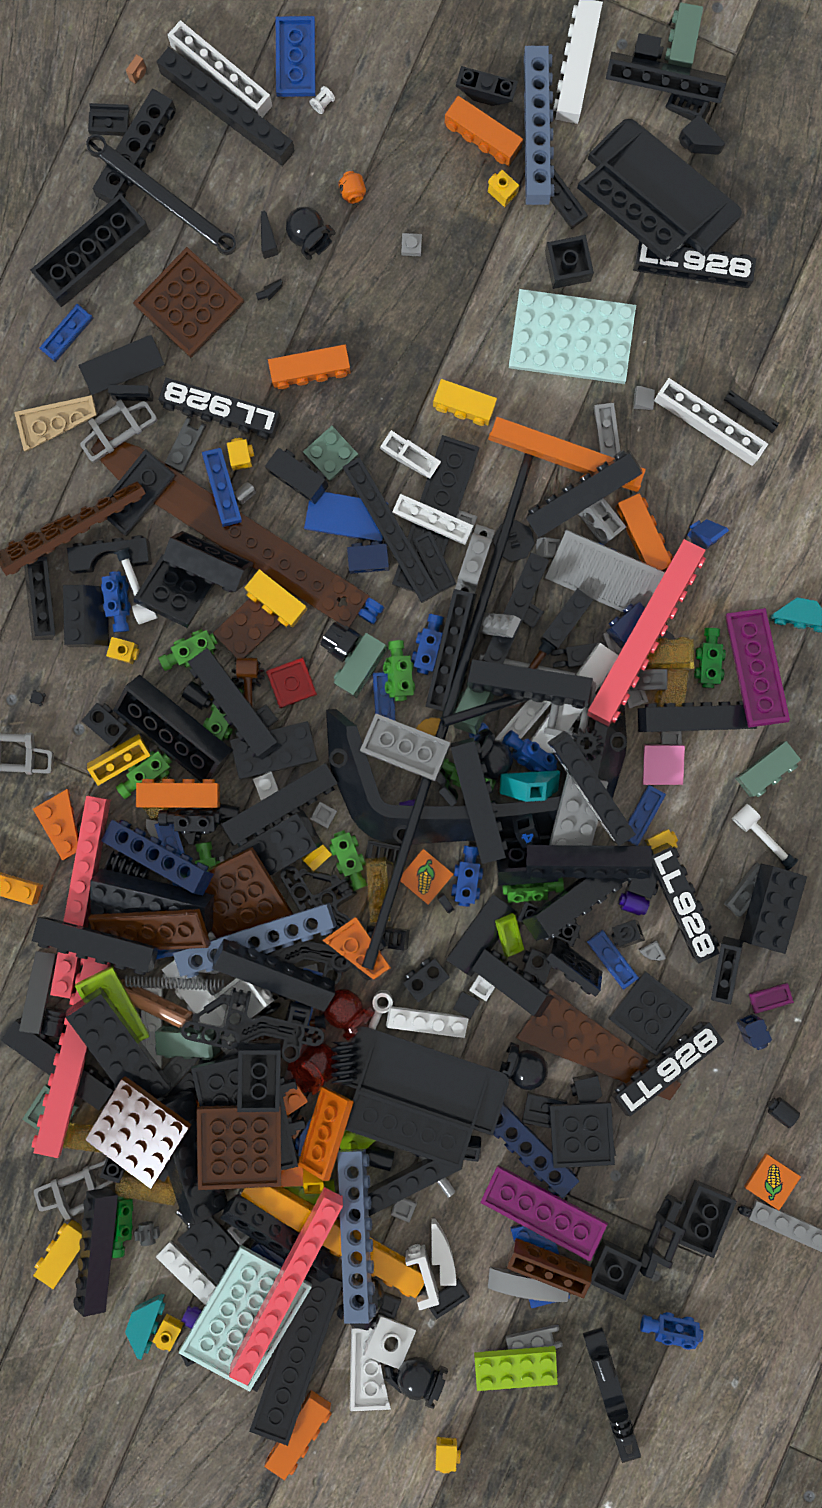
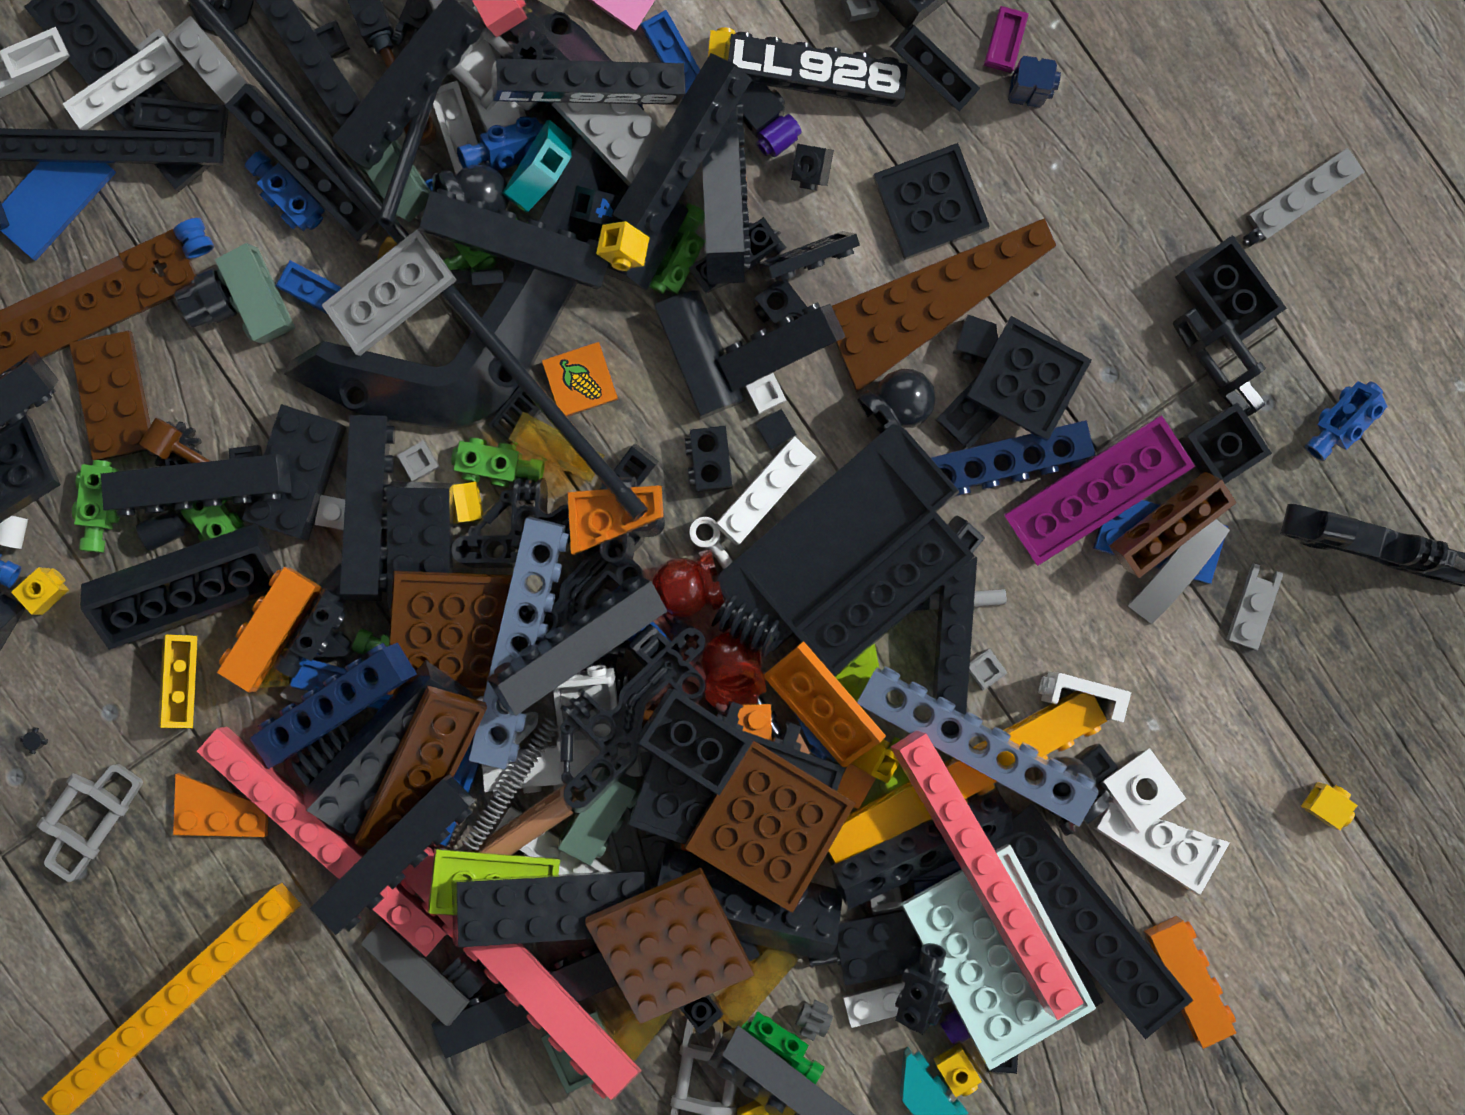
camera: 65 degrees left, 0 degrees up
(103, 728) = (125, 676): black brick -> none
(147, 771) = (211, 654): bright green brick -> none
(200, 1287) = (919, 1008): none -> black brick
(275, 599) = (96, 348): yellow brick -> none
(291, 682) = (223, 399): red tile -> none
(368, 557) = (123, 200): dark blue brick -> none
(380, 1158) = (903, 657): black brick -> none
(391, 1377) = (1194, 815): black bar -> none
(397, 674) = (296, 250): bright green brick -> none
(420, 1380) = (1215, 779): black tile -> none
(442, 1255) = (1074, 655): white slope -> none
(445, 903) = (629, 374): black tile -> none
(450, 1298) = (1135, 678): black tile -> none
(465, 882) = (617, 330): blue brick -> none
(499, 625) = (308, 76): light grey plate -> none
(509, 935) = (720, 317): lime tile -> none
(511, 863) = (622, 245): none -> yellow brick
(515, 1368) = (1274, 649): lime plate -> none
(612, 959) = (834, 208): blue tile -> none
(653, 951) = (856, 151): light grey tile -> none
(667, 1068) = (1012, 220): black brick -> none
(772, 1181) = (1237, 180): orange tile -> none
(783, 1112) = (1158, 111): black brick -> none

